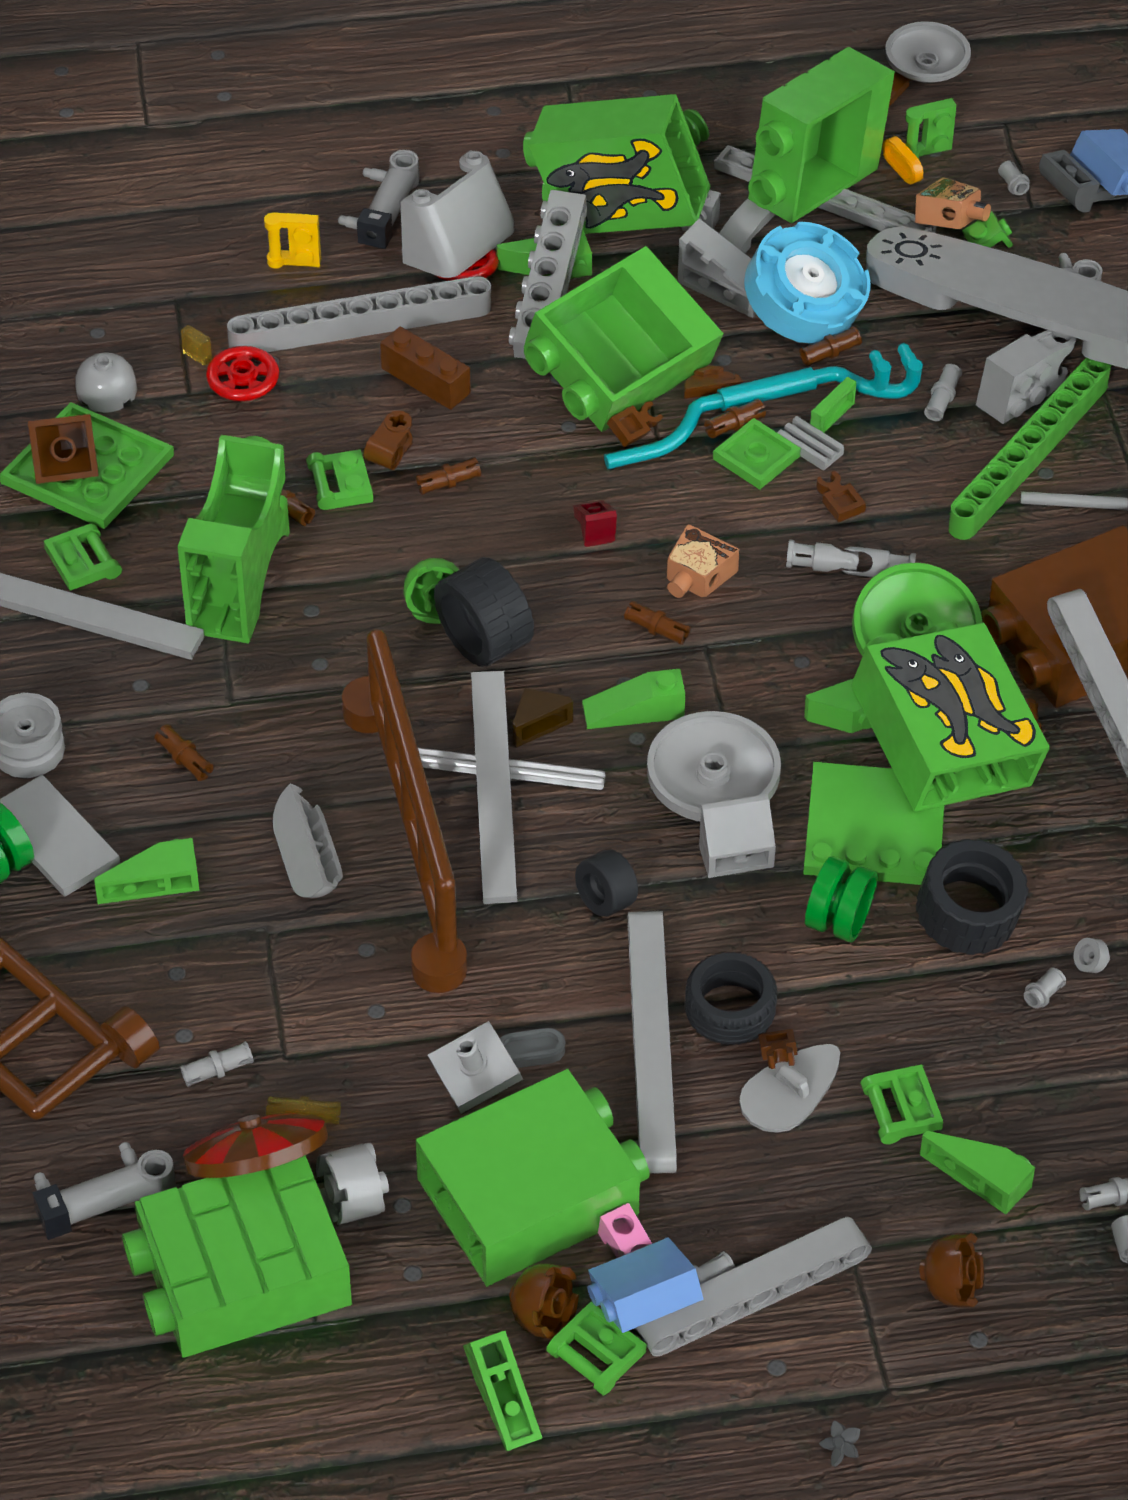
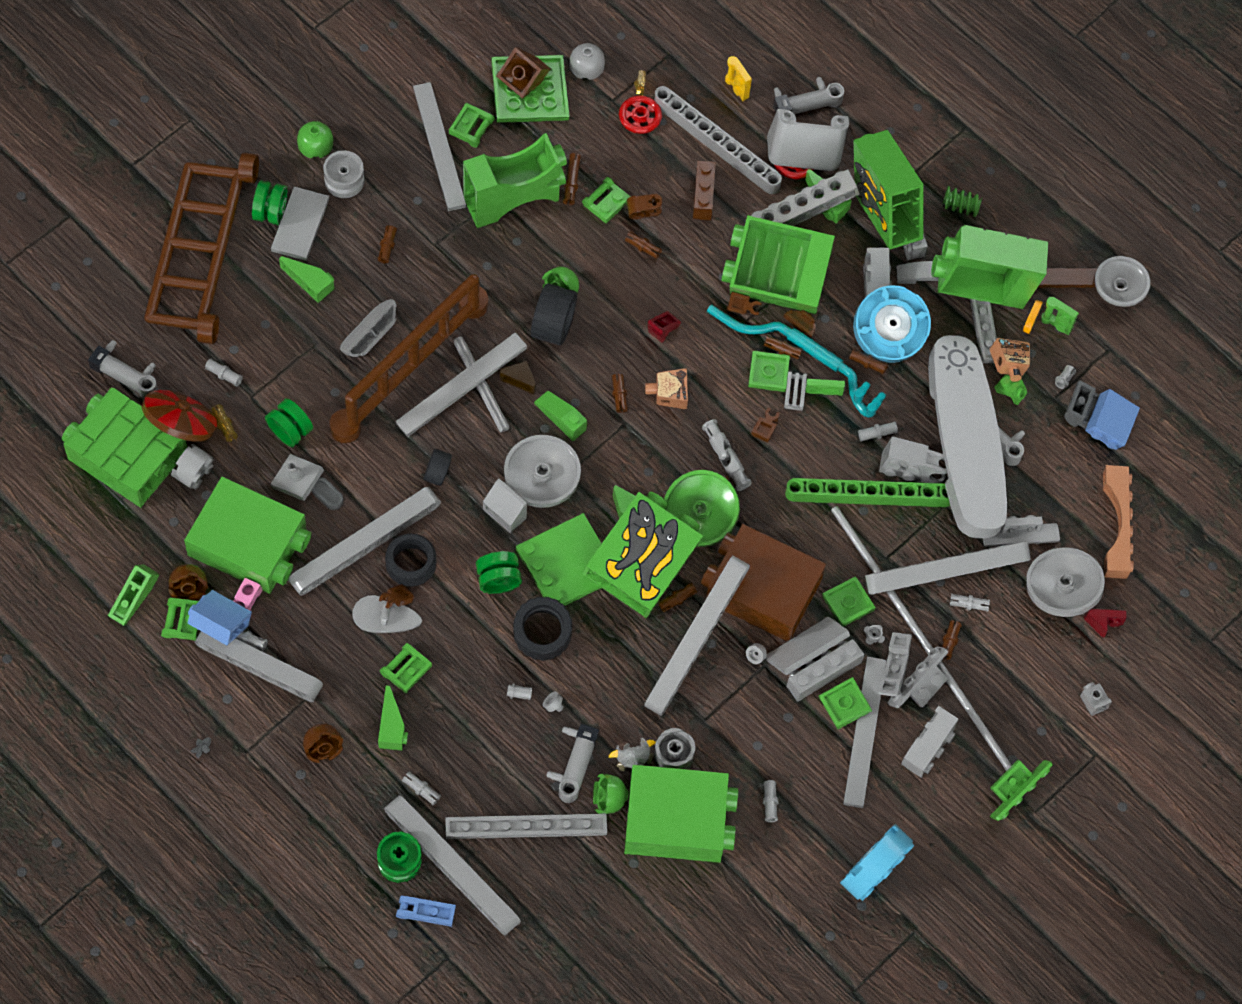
camera: 50 degrees right, 15 degrees up
(383, 1018) = (289, 422): none -> green wheel

